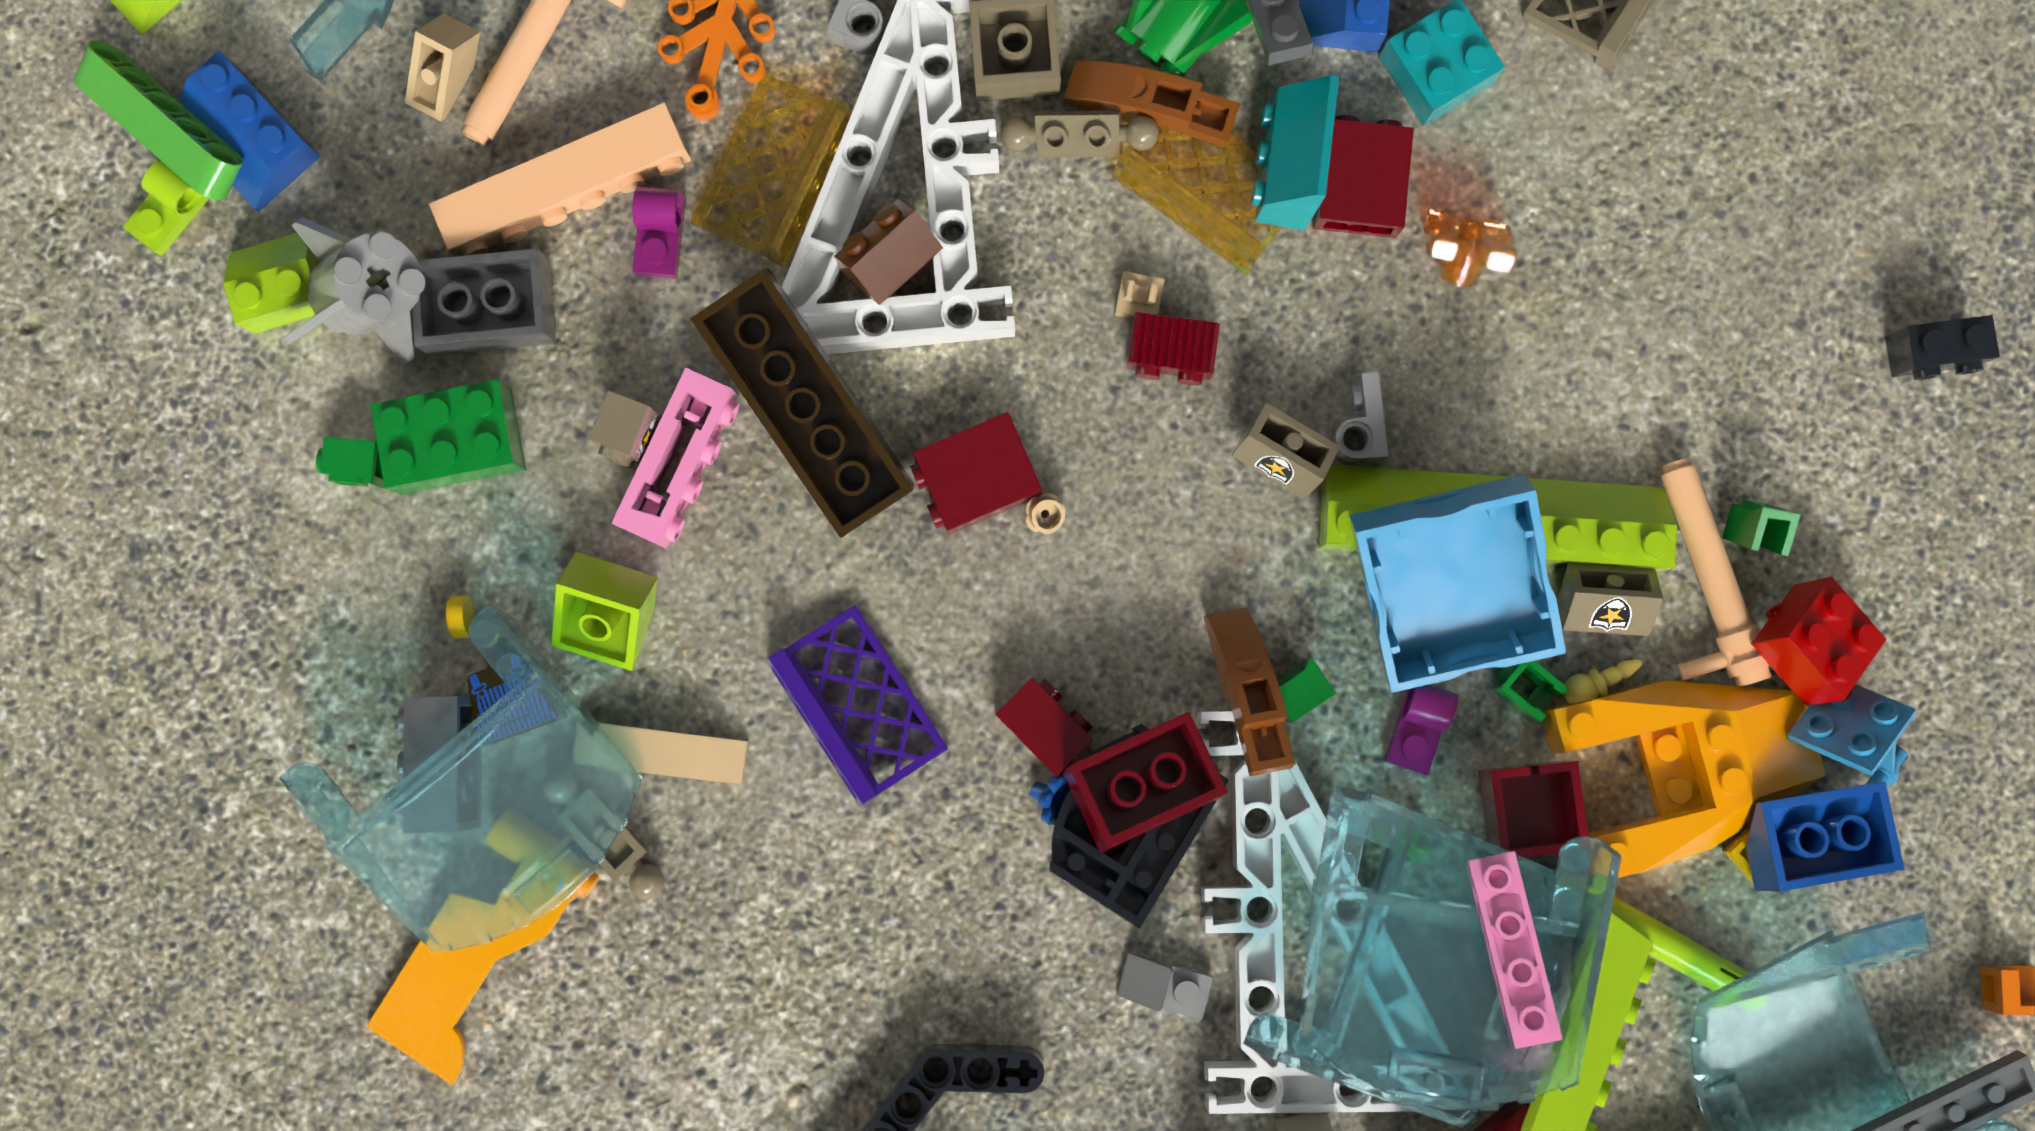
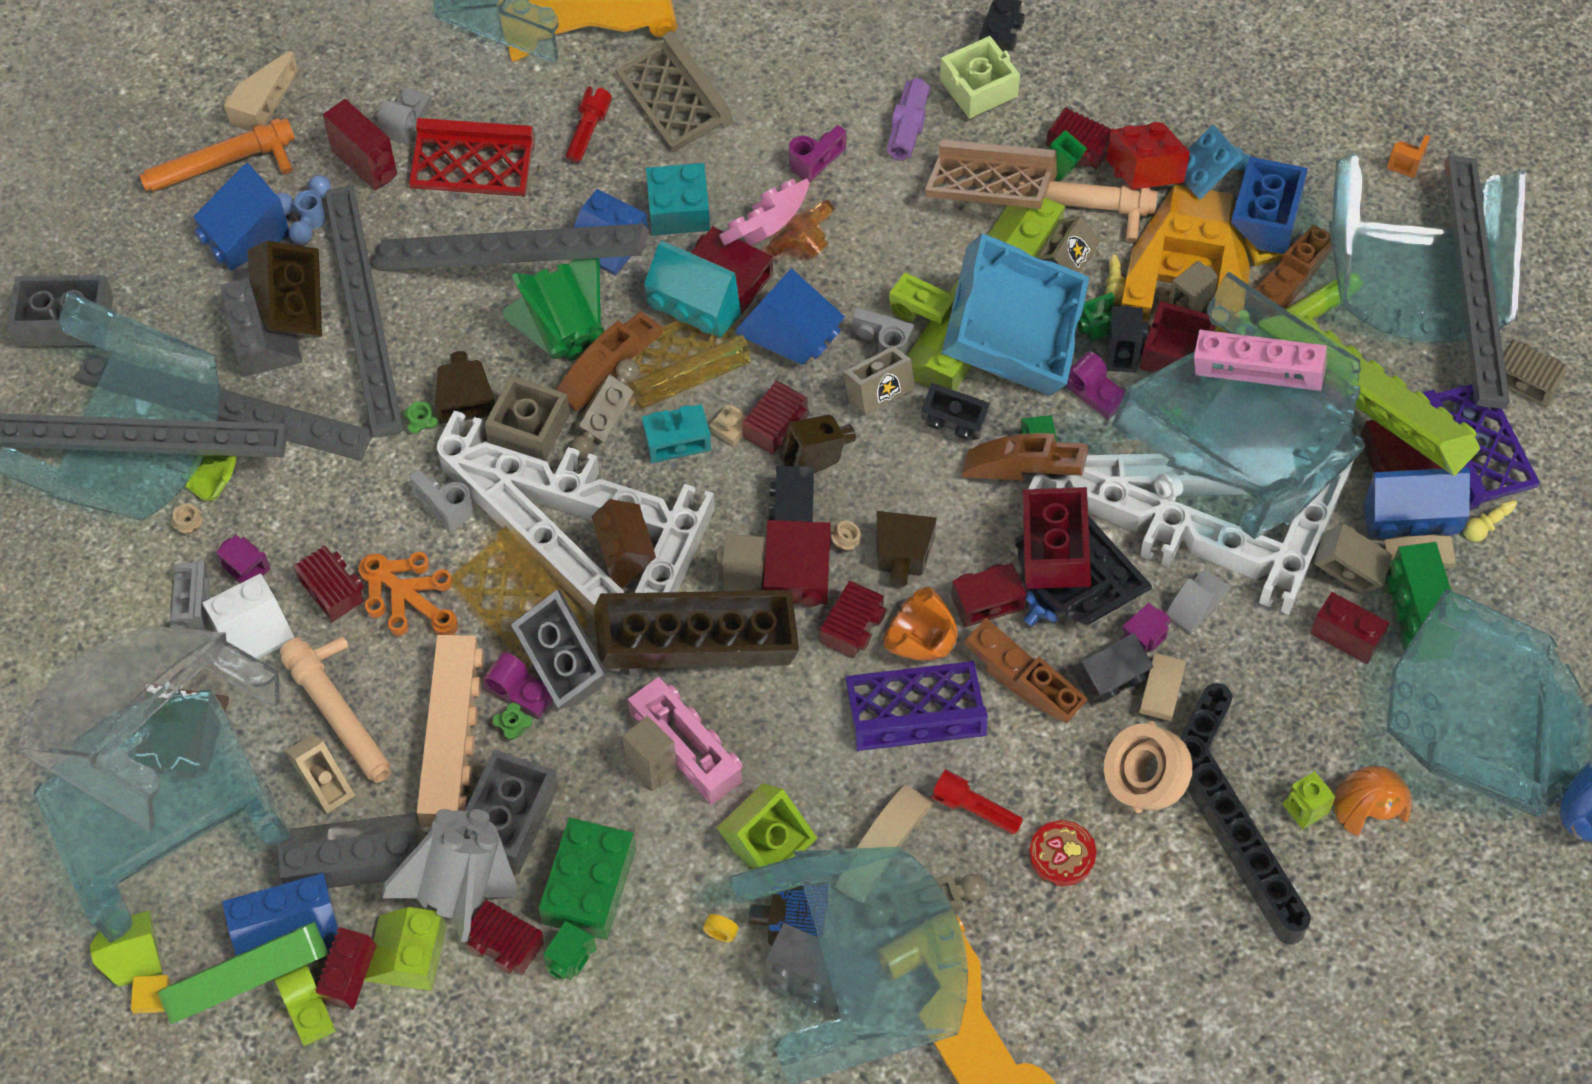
camera: 65 degrees left, 25 degrees down
(109, 28) = (145, 993): none -> yellow tile
(215, 228) = (346, 968): none -> dark red brick
(336, 379) = (503, 938): none -> dark red brick
(363, 150) = (349, 850): none -> dark grey slope
(619, 256) = (516, 729): none -> bright green plate
(699, 256) = (560, 651): none -> flat silver slope
(743, 966) = (1062, 853): none -> tile
(756, 807) = (955, 792): none -> red piece
(858, 1019) = (1127, 765): none -> light nougat piece
(929, 409) = (742, 563): none -> dark tan brick
(930, 578) = (852, 619): none -> dark red brick
(948, 667) = (922, 628): none -> orange hair
(955, 820) = (1024, 675): none -> dark orange slope
(1007, 925) = (1111, 668): none -> black brick
(1019, 994) = (1162, 687): none -> tan slope
(1062, 426) = (792, 493): none -> black brick
(1063, 591) = (903, 544): none -> dark brown torso
(1086, 943) = (1149, 627): none -> magenta window
(1090, 237) = (676, 433): none -> teal brick
(1136, 410) = (815, 442): none -> dark brown torso
(1284, 568) = (955, 411): none -> black brick
(1295, 889) = (1168, 486): none -> white plate
(1318, 299) = (792, 320): none -> blue slope
(1435, 447) = (915, 297): none -> lime plate
(1472, 194) = (769, 214): none -> bright pink slope
(1503, 737) = (1125, 338): none -> black brick
(1606, 208) = (811, 157): none -> magenta plate
(1620, 796) = (1194, 287): none -> dark tan brick
(1707, 444) = (992, 161): none -> medium nougat fence
(1727, 294) = (908, 119): none -> medium lavender piece
(1731, 910) = (1297, 267): none -> dark orange slope
(1818, 537) = (1086, 131): none -> dark red brick
(1842, 357) = (979, 77): none -> yellowish green brick

